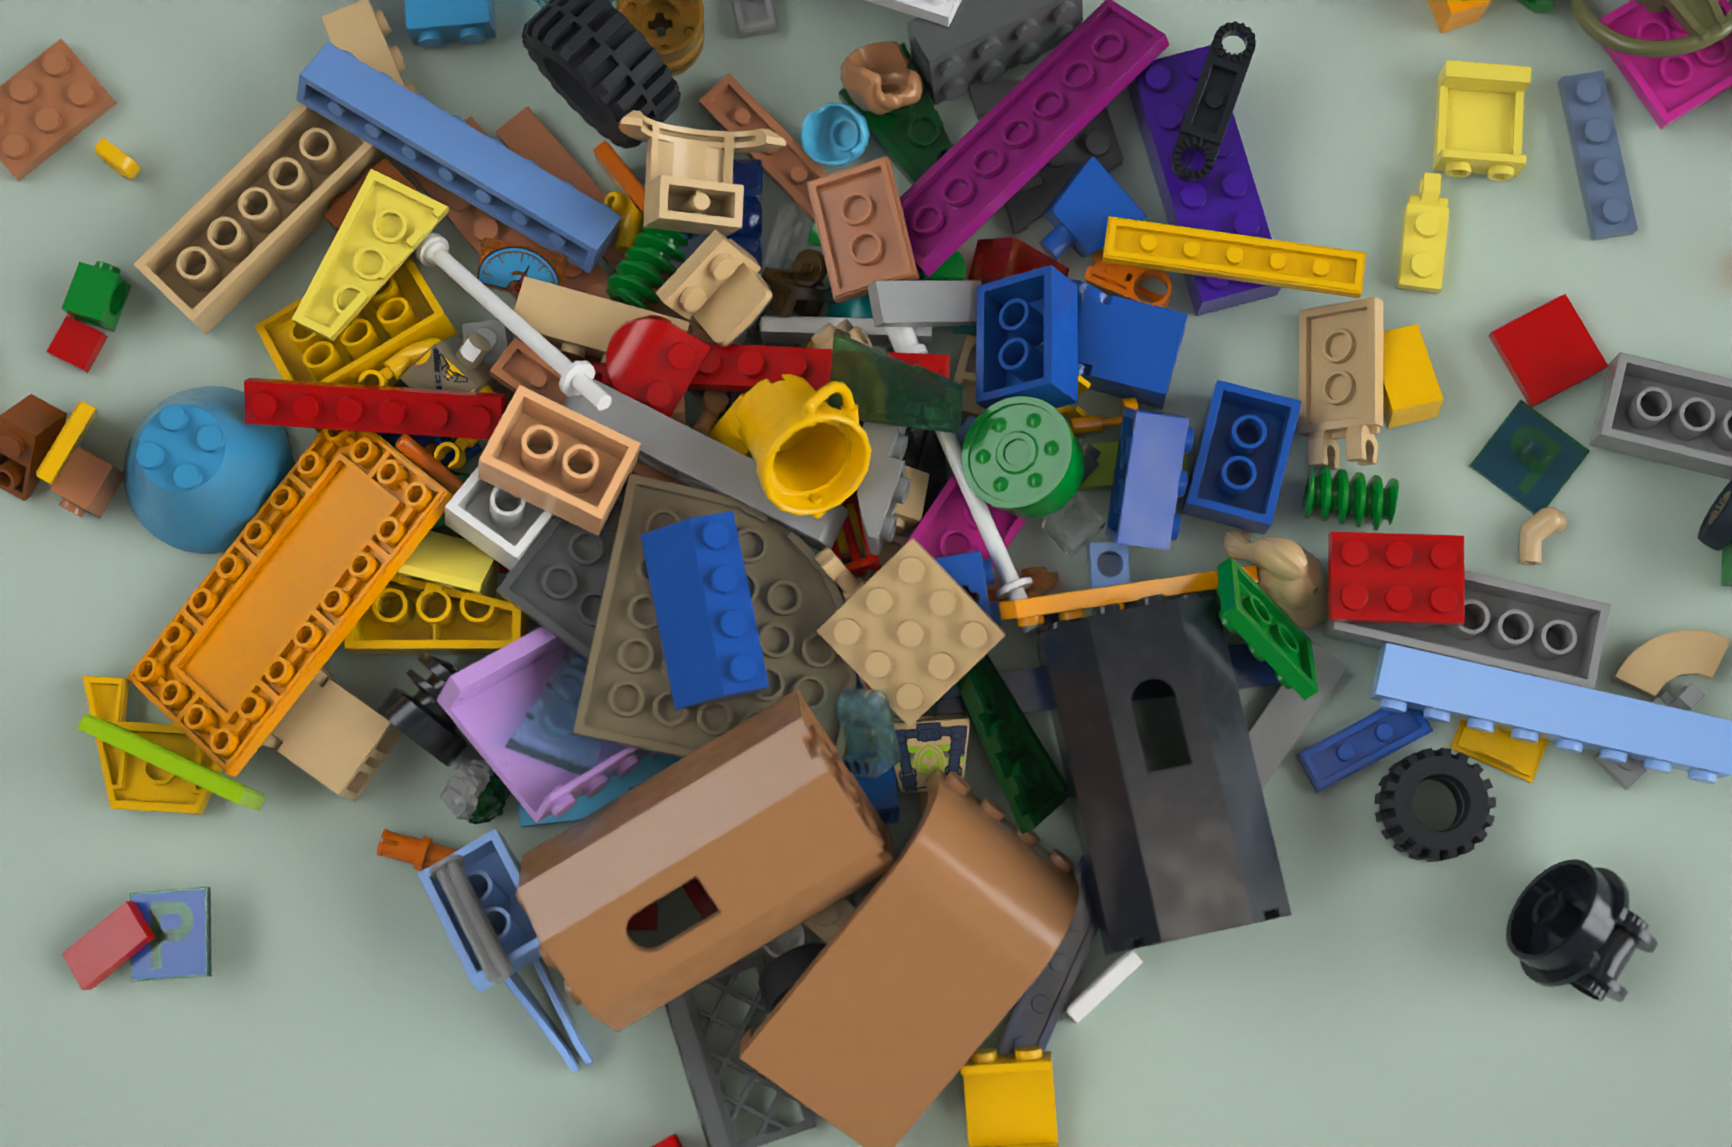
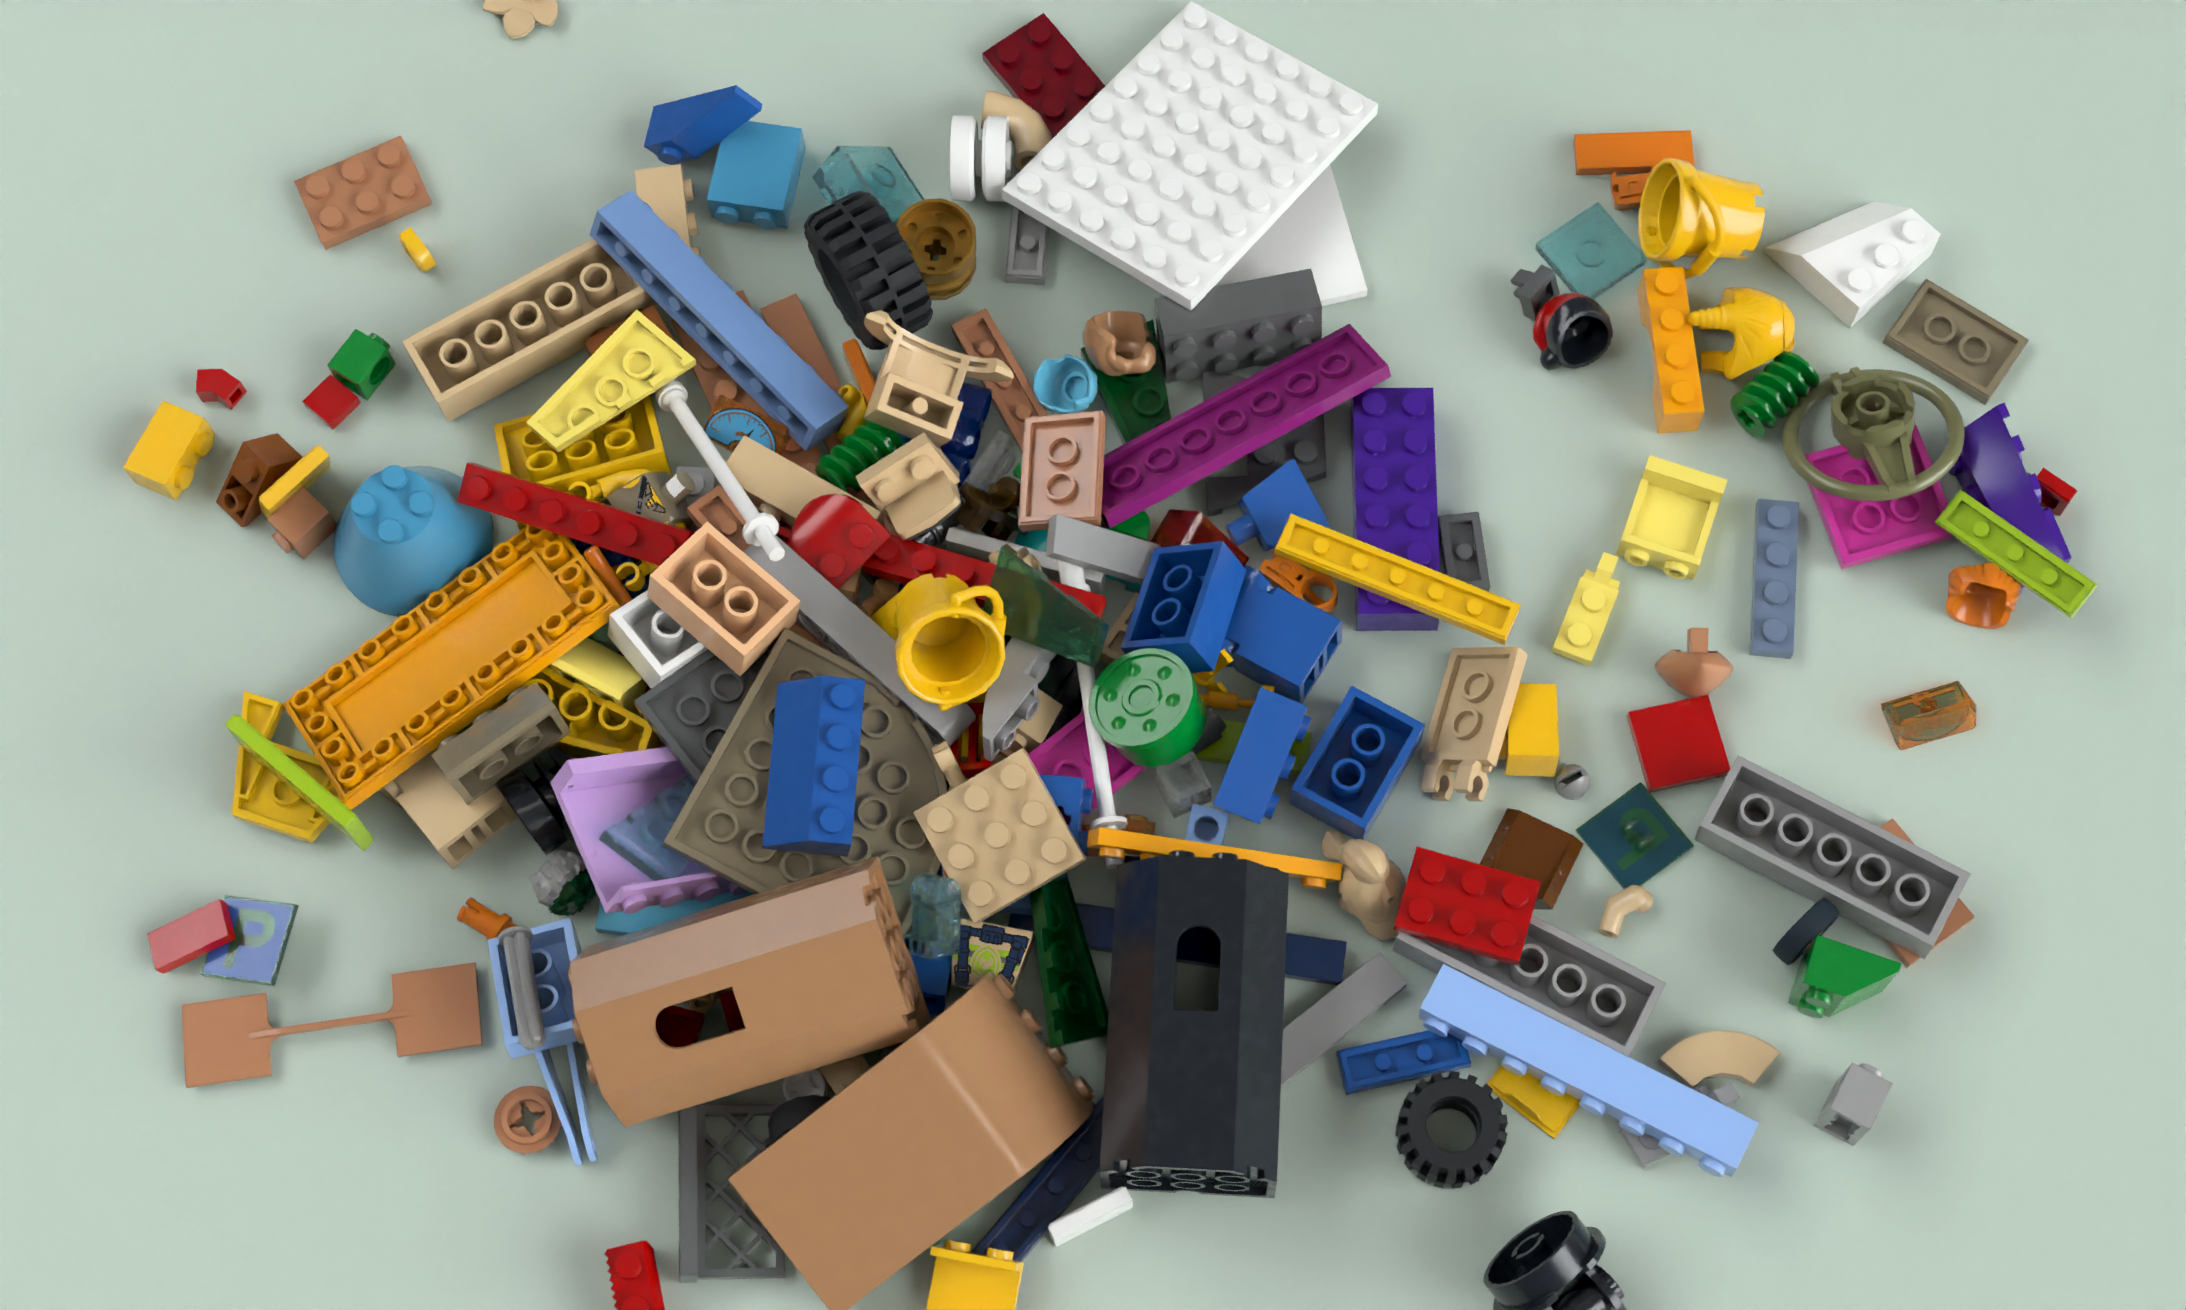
camera: 15 degrees right, 10 degrees down
(186, 1037) = (233, 1035): none -> nougat hinge
(368, 668) = (500, 742): none -> dark tan slope
(491, 1035) = (510, 1113): none -> nougat gear
(1213, 102) = (1415, 436): black plate -> none
(1267, 629) = (1331, 920): green plate -> none
(1285, 206) = (1464, 548): none -> dark grey plate
(1350, 497) = (1449, 827): green piece -> none
(1436, 502) = (1535, 852): none -> reddish brown slope
(1462, 421) = (1576, 788): none -> light grey hinge
(1549, 271) = (1697, 669): none -> nougat piece

